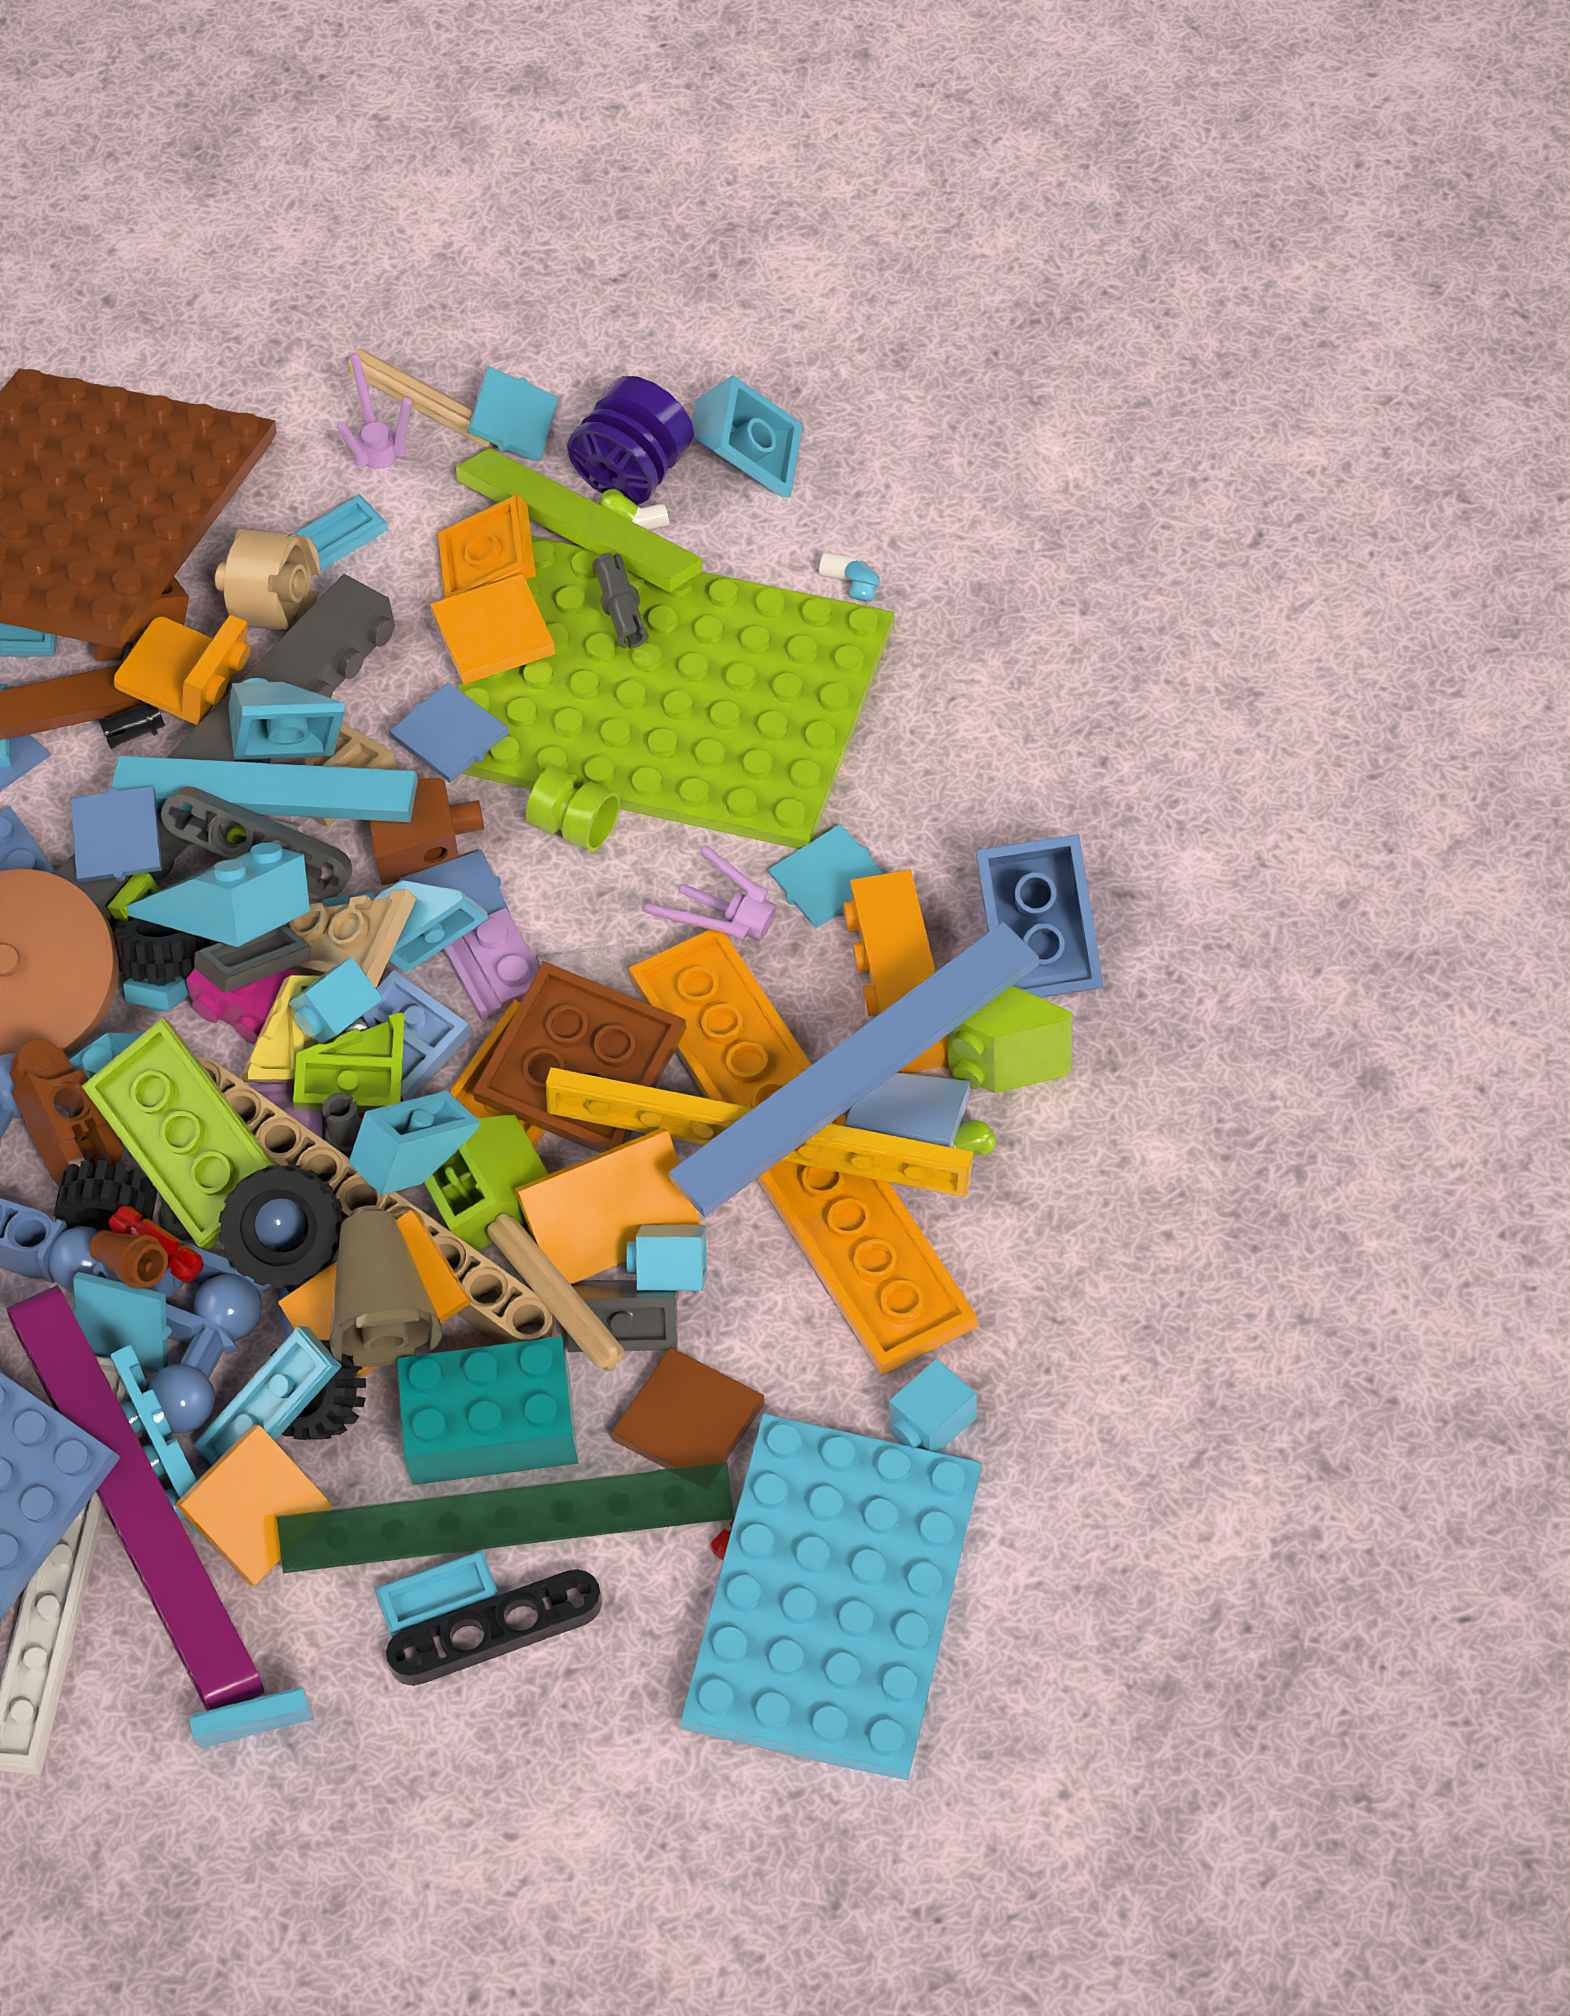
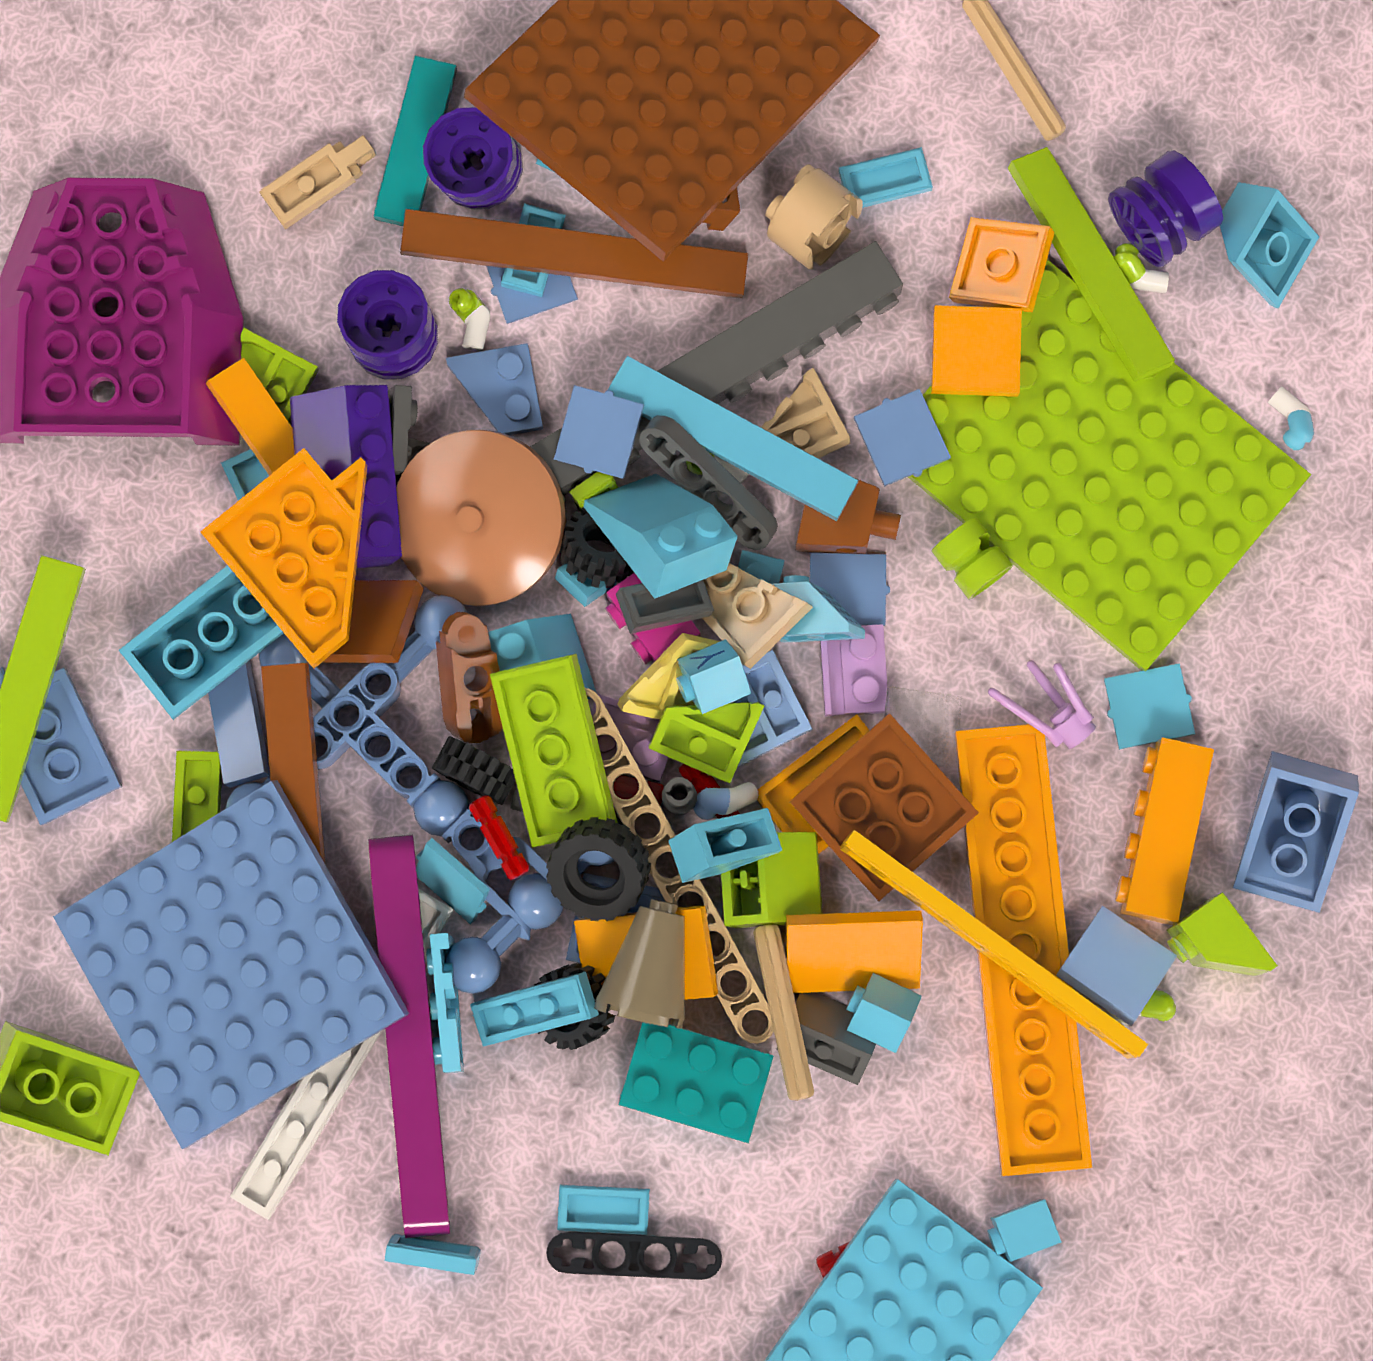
camera: 20 degrees right, 25 degrees up
(131, 724) = (653, 303): black pin -> none
(131, 1257) = (474, 850): dark orange cone -> none
(183, 667) = (710, 279): light orange bracket -> none
(240, 1502) = (494, 1084): light orange tile -> none
(282, 721) = (766, 379): medium azure slope -> none
(376, 443) = (956, 98): lavender plant -> none
(505, 1517) = (676, 1174): clear green tile -> none
(512, 414) = (1080, 122): medium azure piece -> none
(620, 600) = (1090, 373): dark grey pin -> none
(687, 1414) = (843, 1146): dark orange tile -> none
(853, 1069) = (1089, 941): medium blue tile -> none

